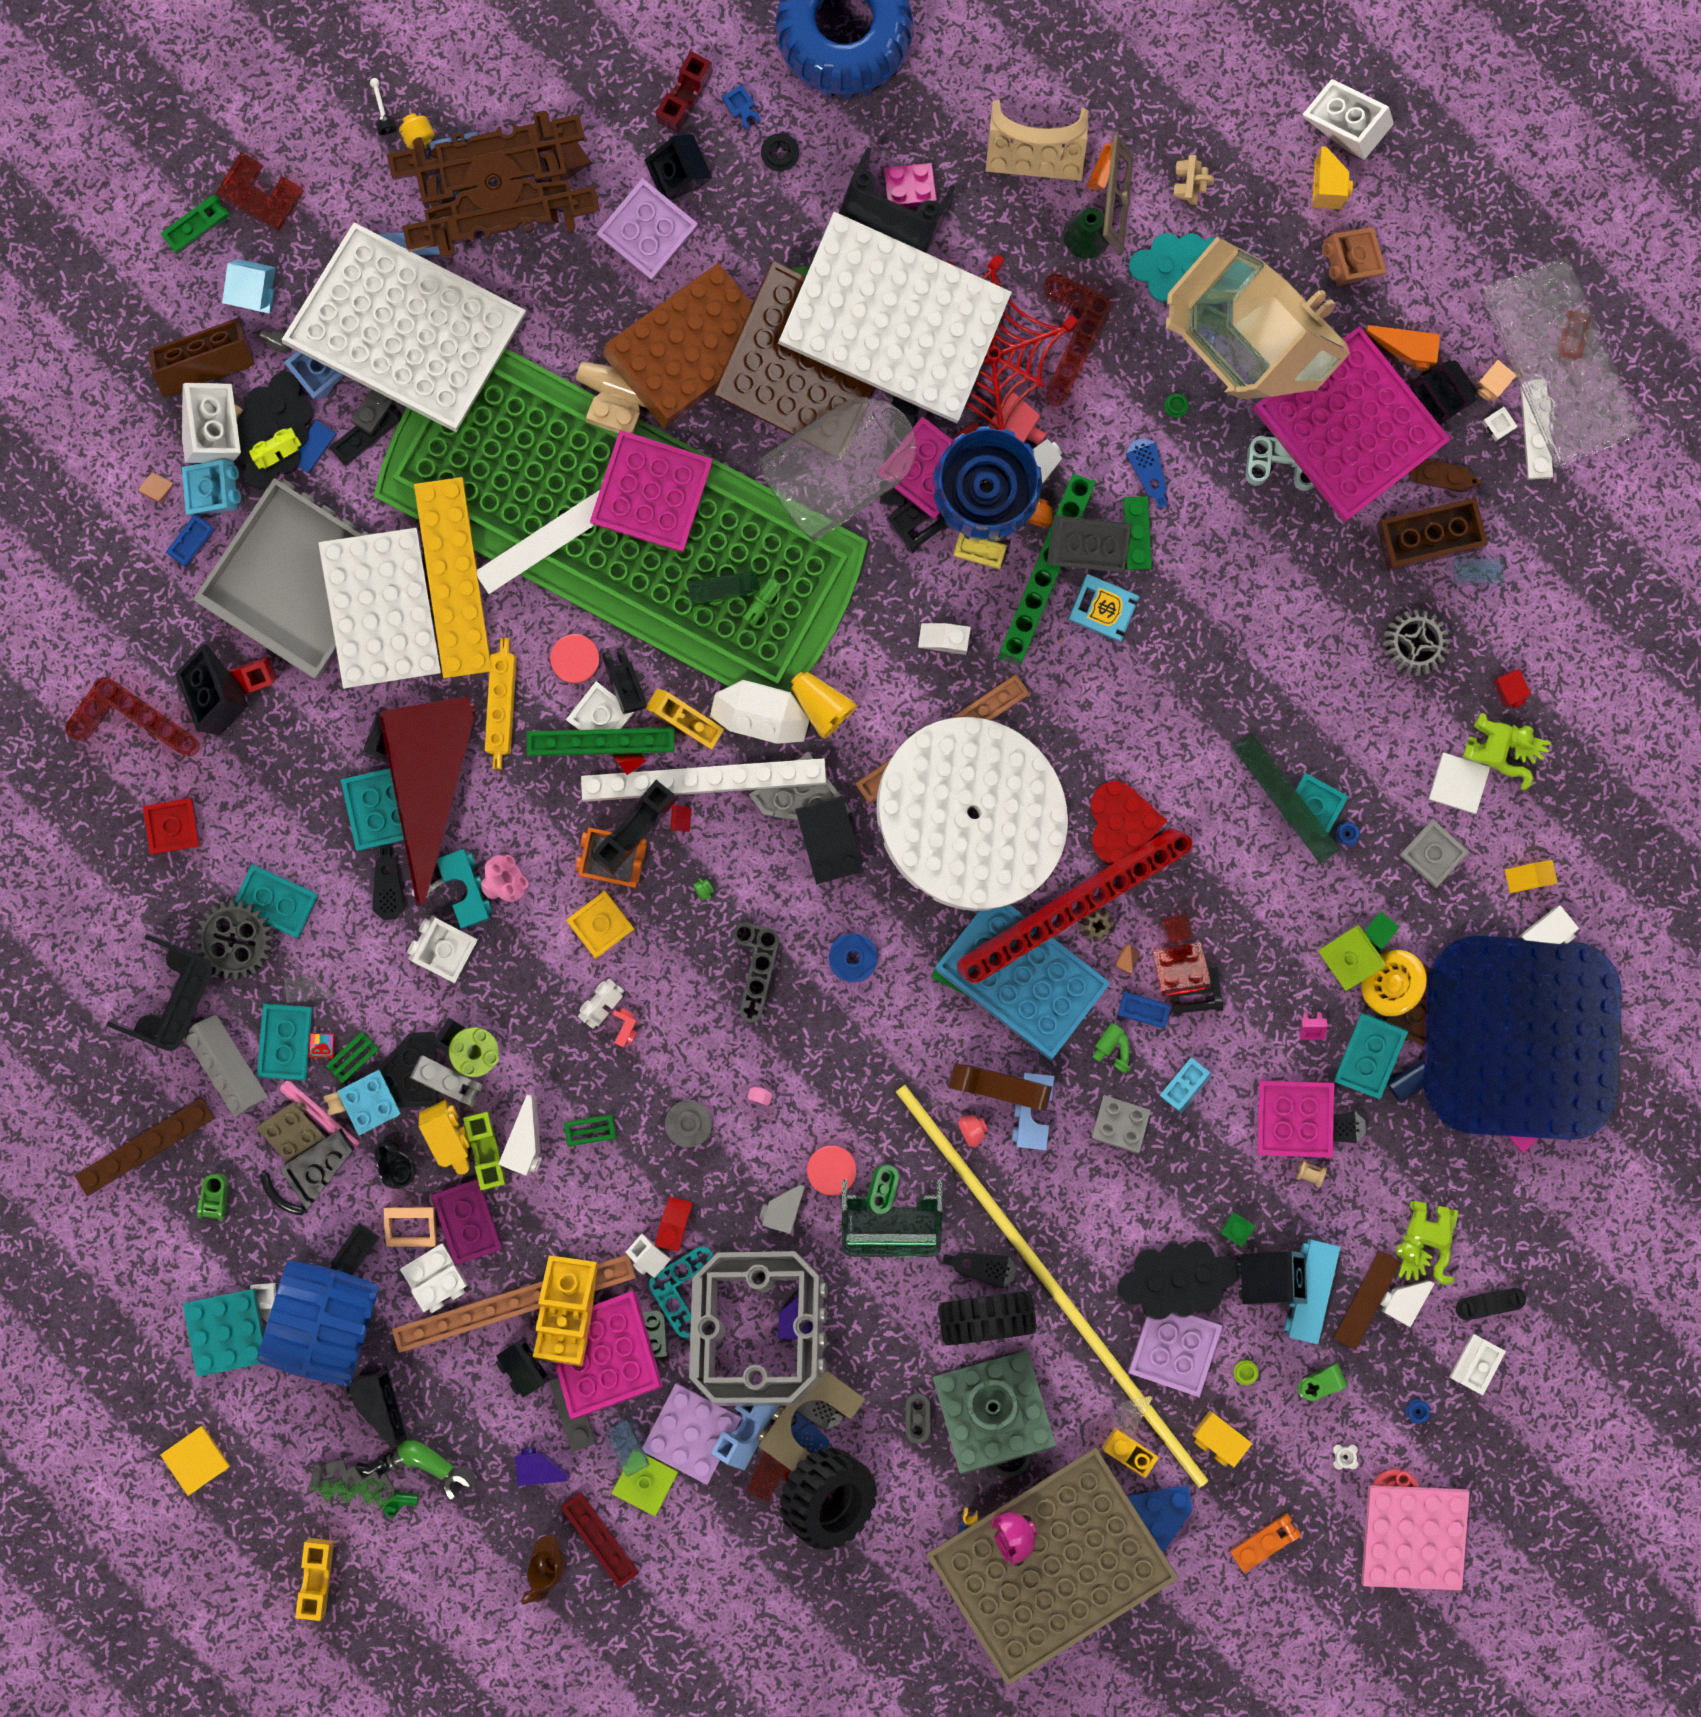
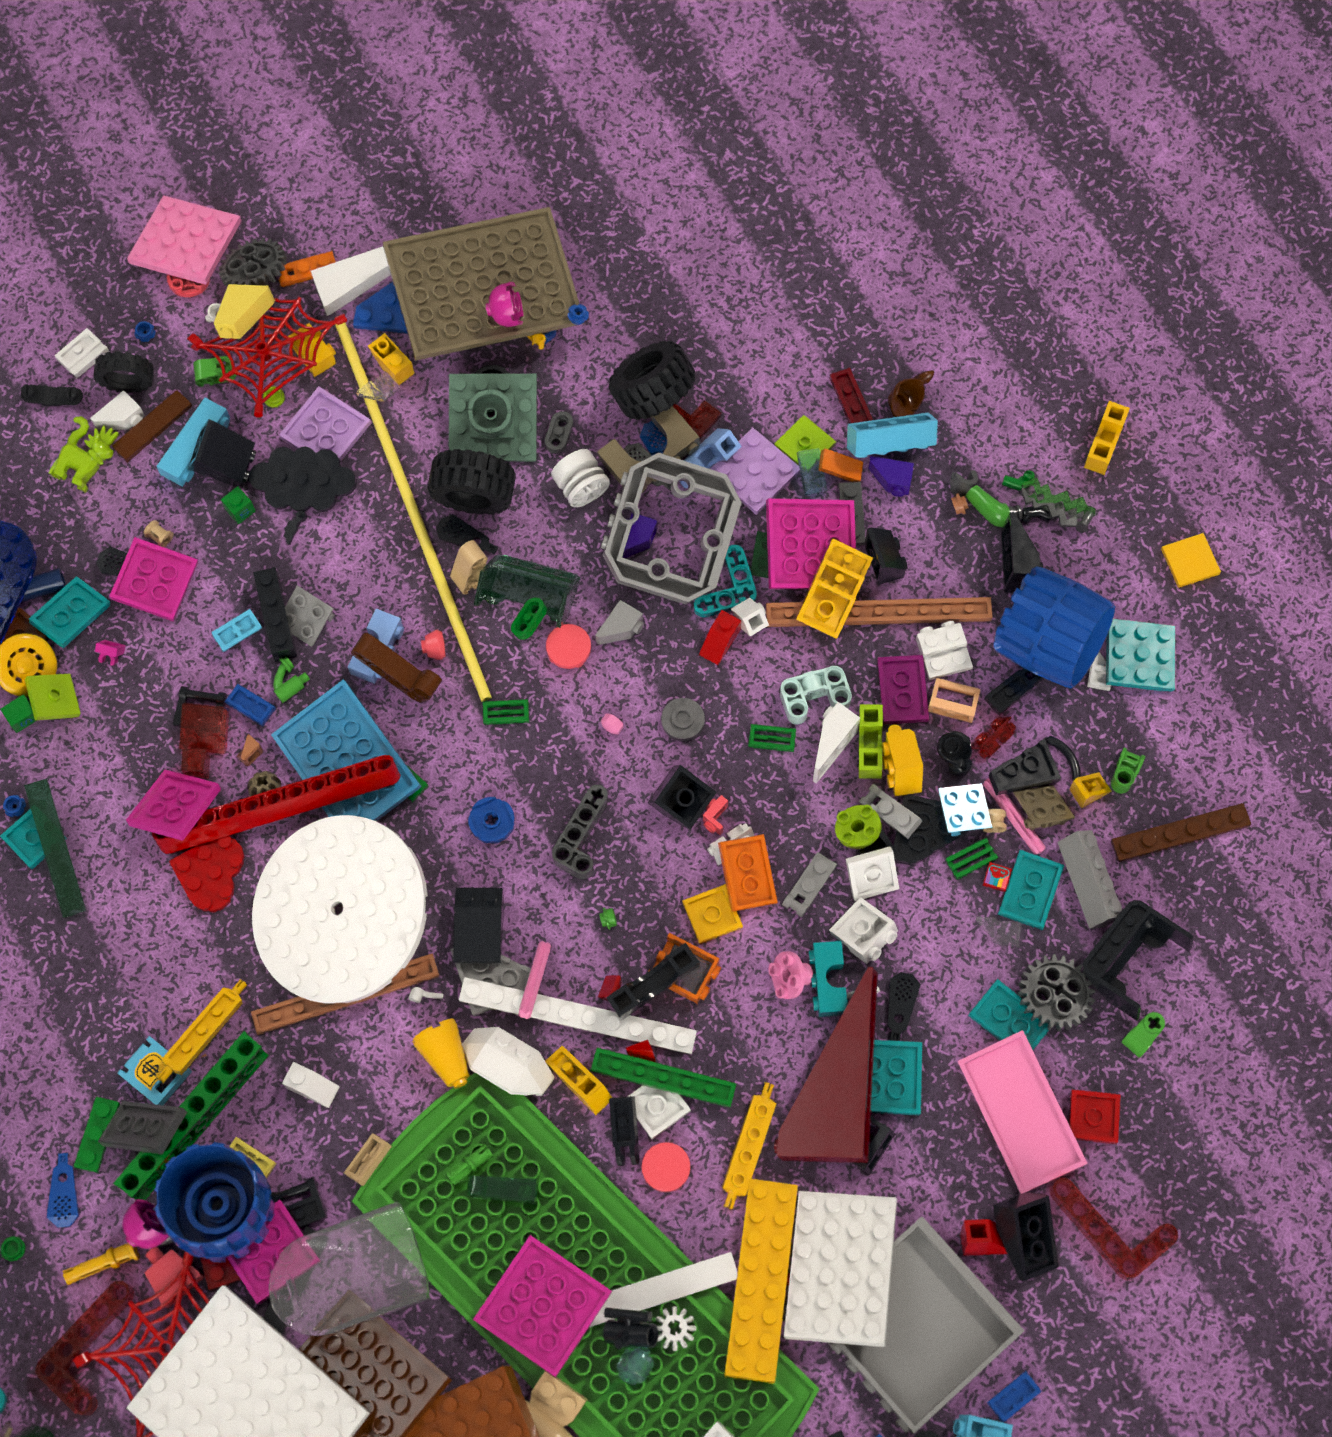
camera: 165 degrees left, 15 degrees down
(140, 919) = (1141, 1036): none -> bright green piece
(242, 810) = (1022, 1112): none -> bright pink tile
(247, 1166) = (1089, 789): none -> yellow slope
(355, 1207) = (999, 729): none -> clear red hinge
(447, 1008) = (872, 873): none -> white plate
(457, 1455) = (959, 504): none -> nougat plate
(509, 983) = (810, 884): none -> light grey plate
(529, 500) = (682, 1326): none -> white gear
(548, 462) = (635, 1365): none -> clear light blue head
(549, 1512) = (892, 435): none -> medium azure brick
(561, 489) = (629, 1328): none -> black pin
(563, 1197) = (812, 686): none -> light aqua beam
(574, 973) = (747, 872): none -> orange tile
(597, 1463) = (840, 465): none -> orange tile
(664, 1035) = (682, 797): none -> black slope
(755, 800) = (534, 980): none -> bright pink axle
(862, 581) = (370, 1159): none -> tan tile
(871, 758) = (417, 993): none -> white hand
(874, 1363) = (580, 478): none -> white wheel
(895, 1072) = (506, 720): none -> green tile
(933, 1550) = (578, 319): none -> blue plate
(961, 1222) = (467, 566): none -> tan beam
(1053, 452) = (142, 1226): none -> dark pink cylinder
(1068, 658) = (202, 1031): none -> yellow plate
(1078, 423) = (112, 1258): none -> yellow pin
(1152, 1116) = (274, 614): none -> black arch
(1171, 1223) = (292, 526): none -> black piece
(1180, 875) = (173, 804): none -> dark pink plate
(1211, 1542) = (349, 278): none -> white slope
(1314, 1460) = (242, 309): none -> light yellow slope
(1330, 1504) = (253, 263): none -> dark grey gear
(1351, 1409) = (264, 350): none -> red animal
(1417, 1346) = (118, 361): none -> black tyre

